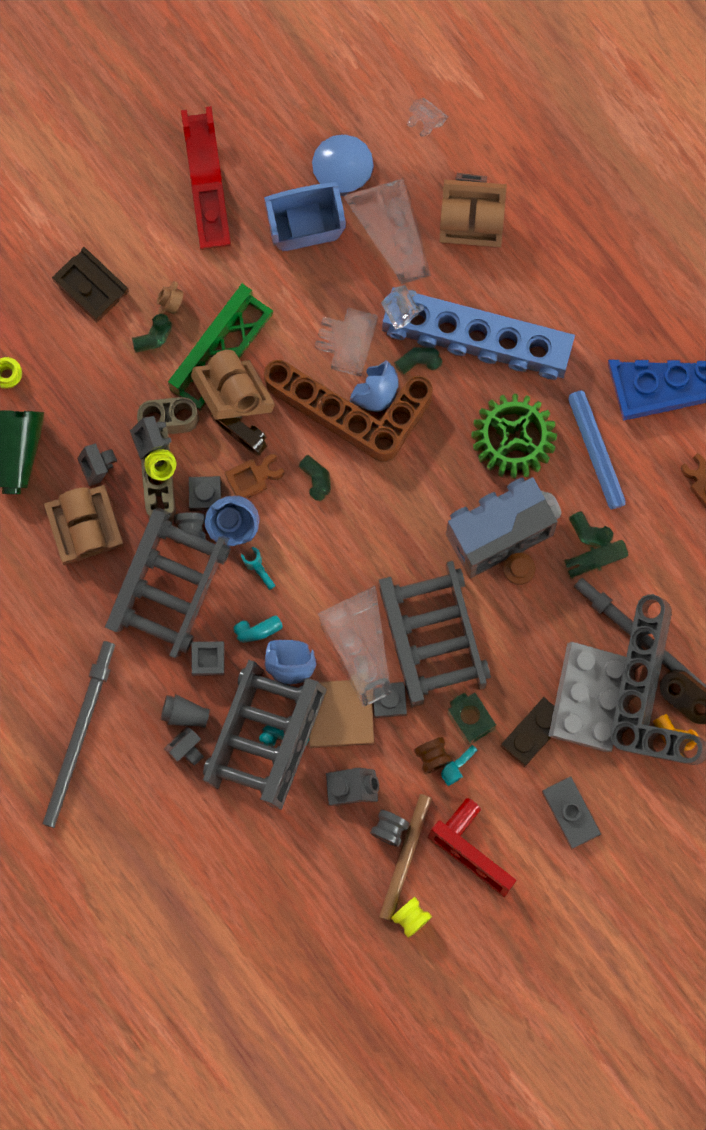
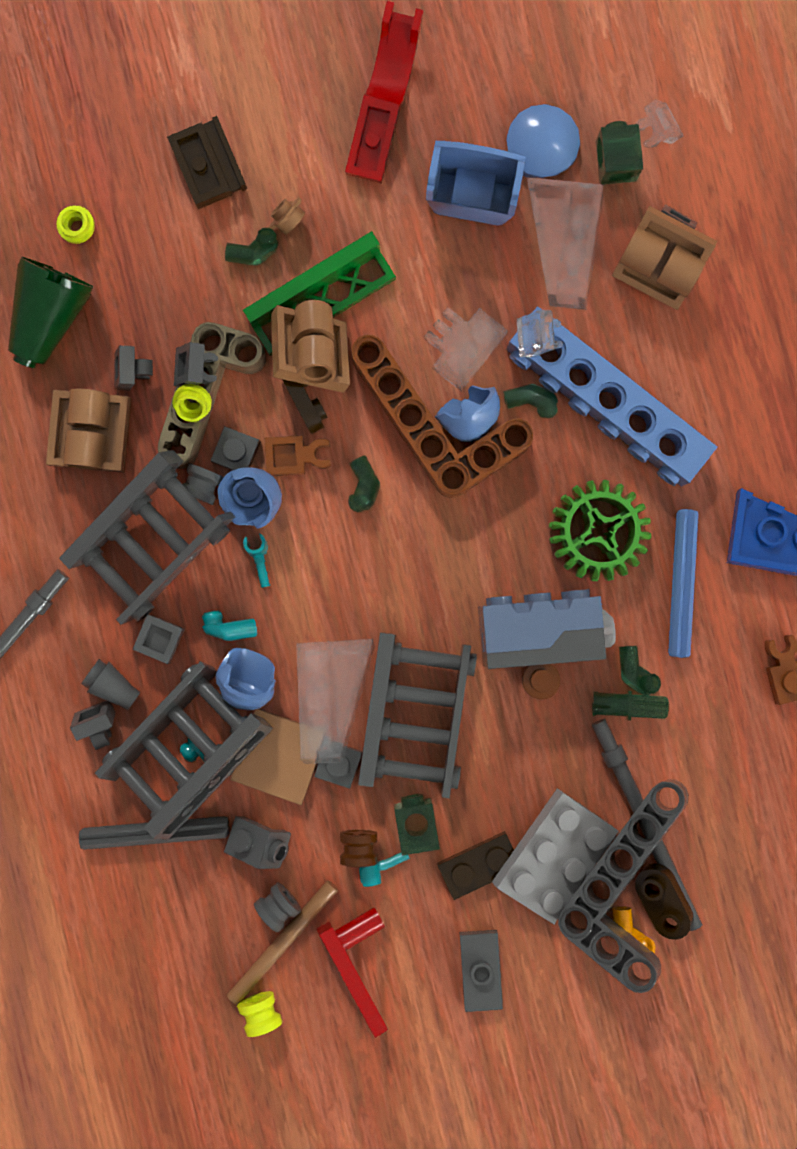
camera: 25 degrees right, 10 degrees up
(266, 815) = (136, 835): none -> dark grey axle
(404, 149) = (619, 153): none -> clear green brick

